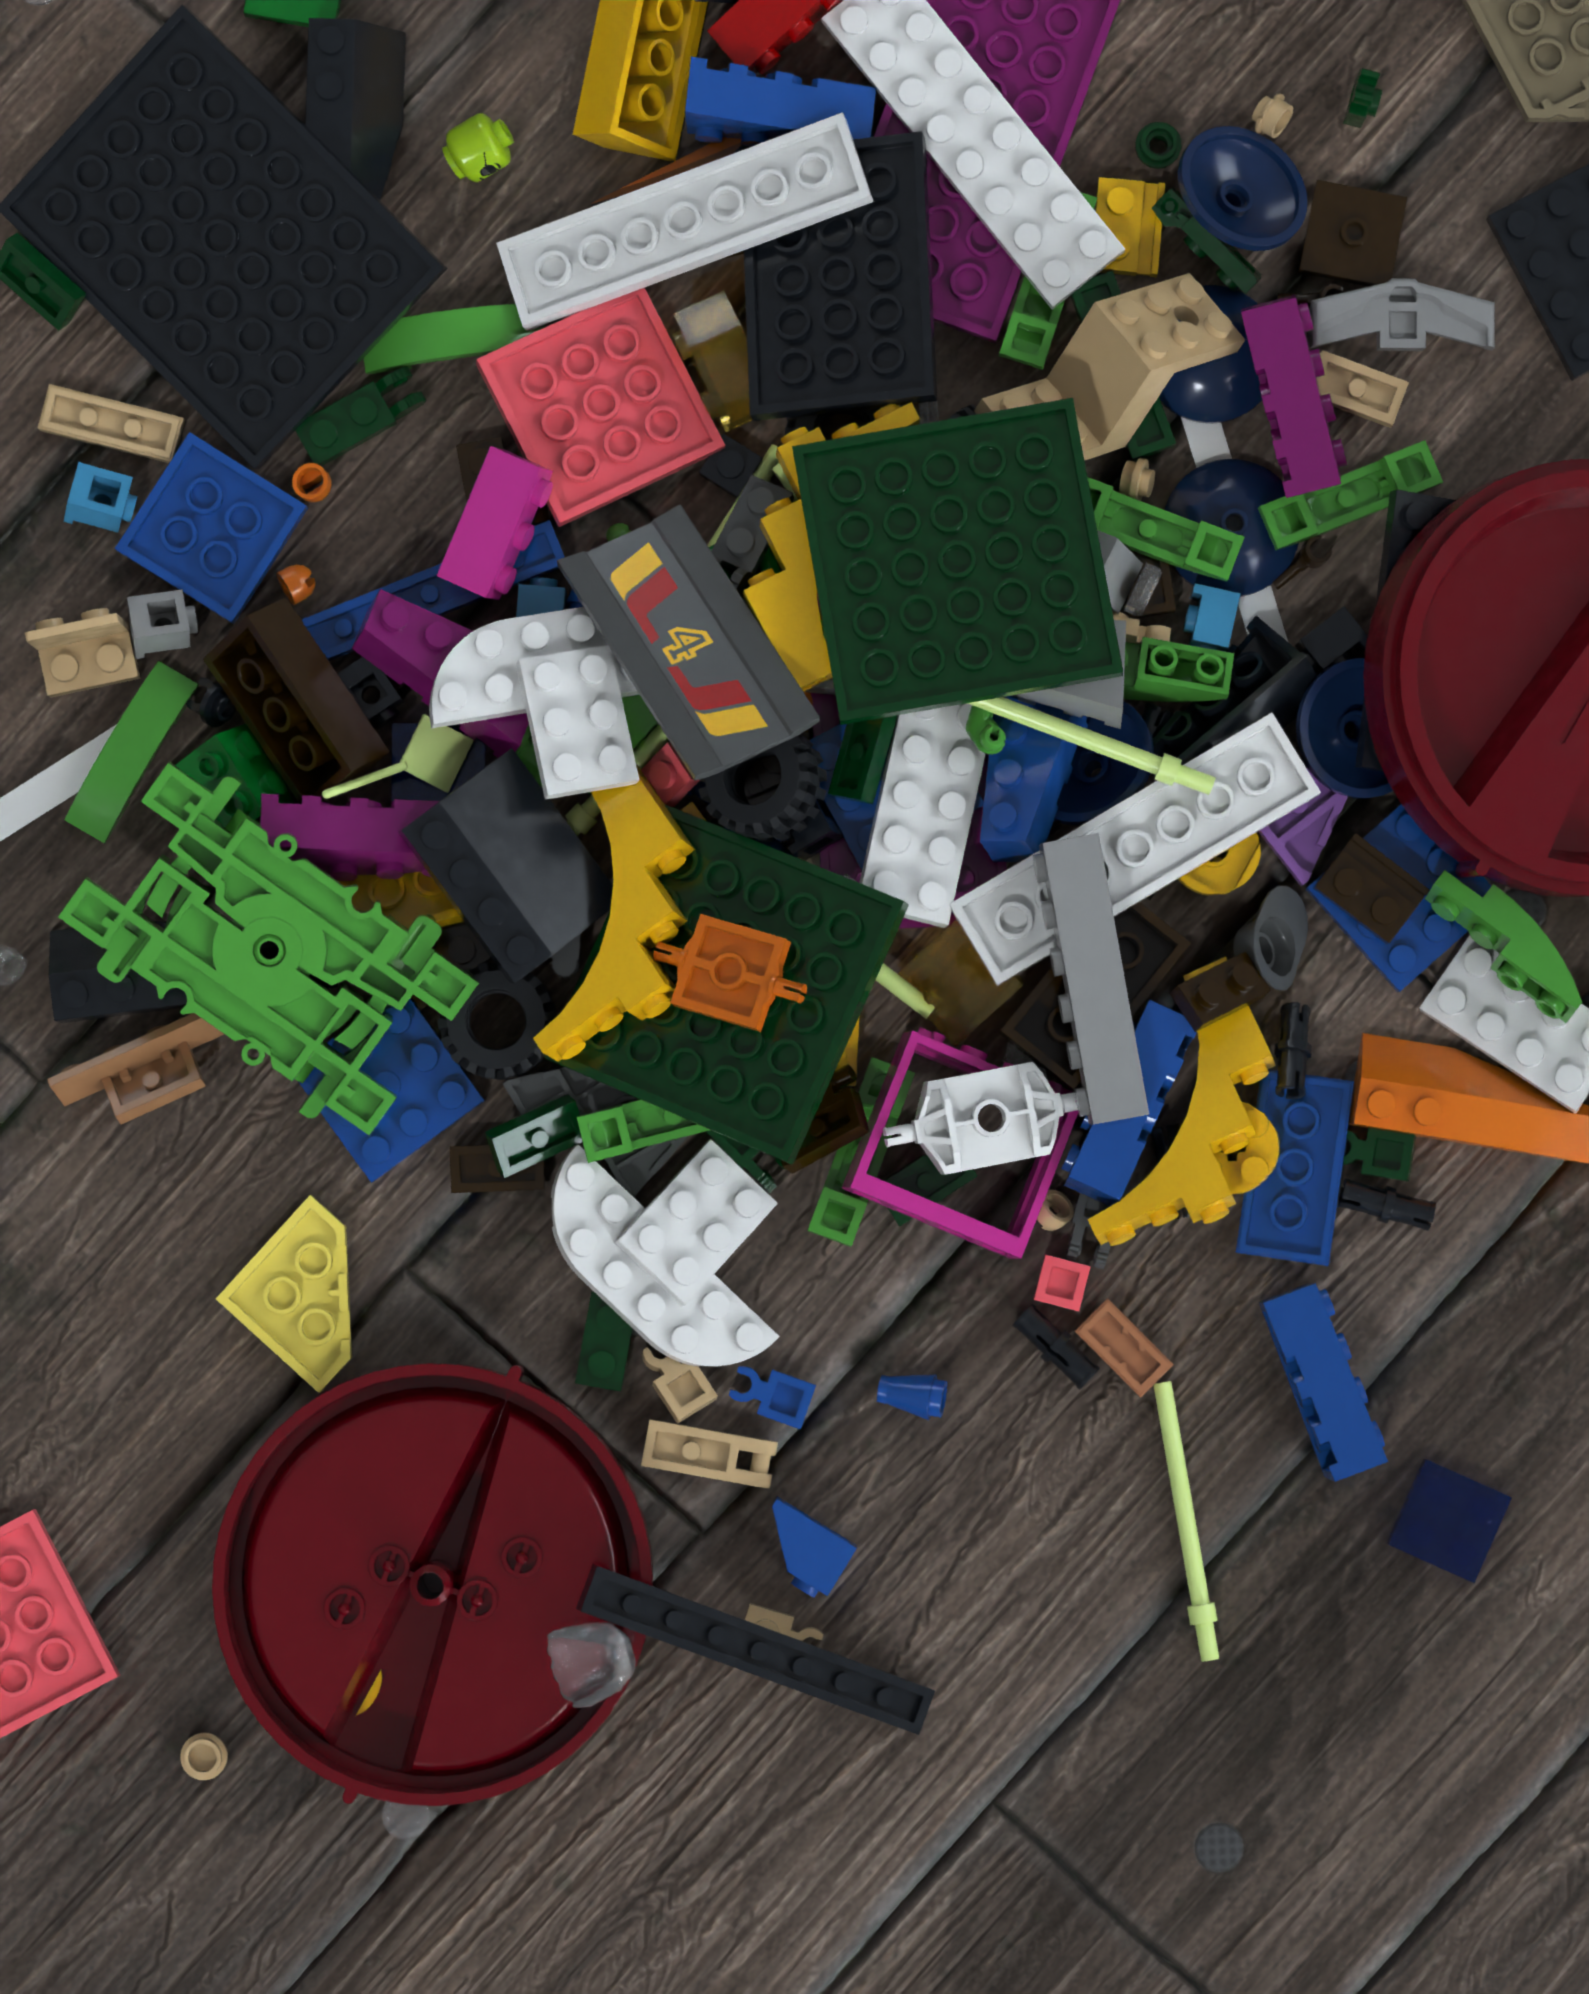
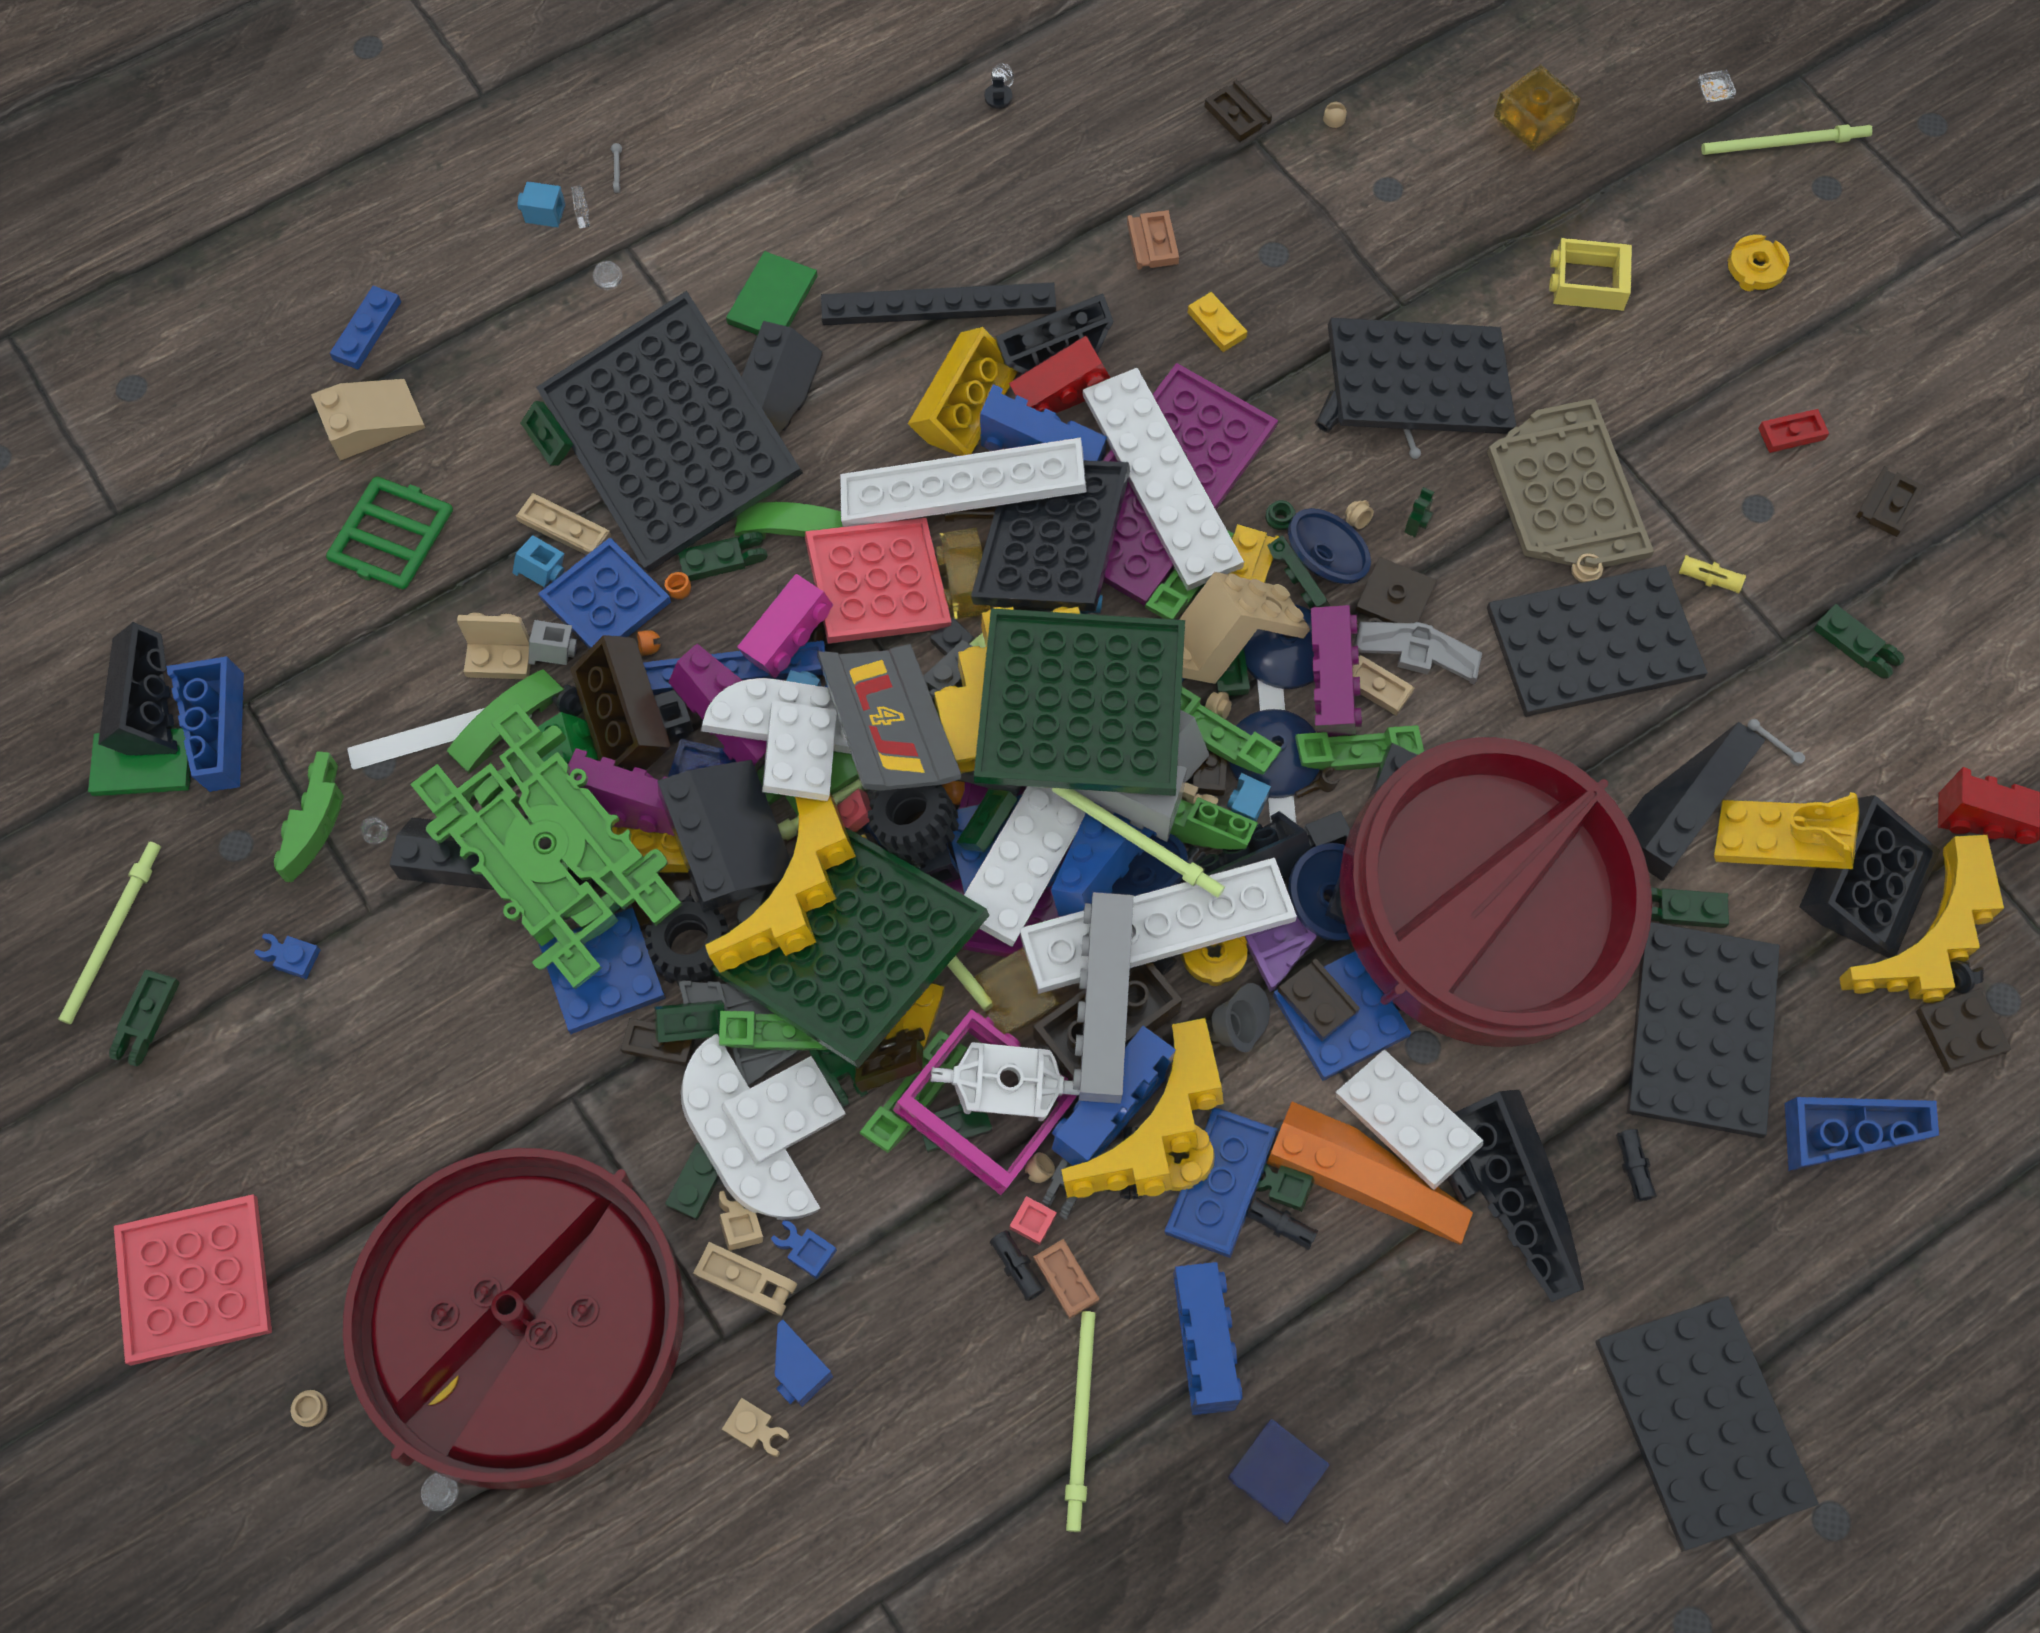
camera: 15 degrees right, 20 degrees down
(141, 1072) = (439, 916): medium nougat bracket -> none
(299, 1294) = (493, 1091): light yellow plate -> none
(431, 756) = (696, 755): yellowish green piece -> none
(478, 147) = (846, 419): lime head -> none
(590, 1661) = (605, 1390): clear hair -> none
(730, 972) = (853, 930): orange plate -> none
(755, 1649) = (733, 1424): black plate -> none
(915, 1394) = (905, 1273): blue cone -> none
(984, 731) = (1073, 821): bright green arm -> none
(1143, 590) = (1205, 768): clear tile -> none
(1220, 991) = (1194, 1034): dark brown plate -> none
(1293, 1050) = (1238, 1097): black pin -> none
(1526, 953) = (1417, 1059): bright green slope -> none

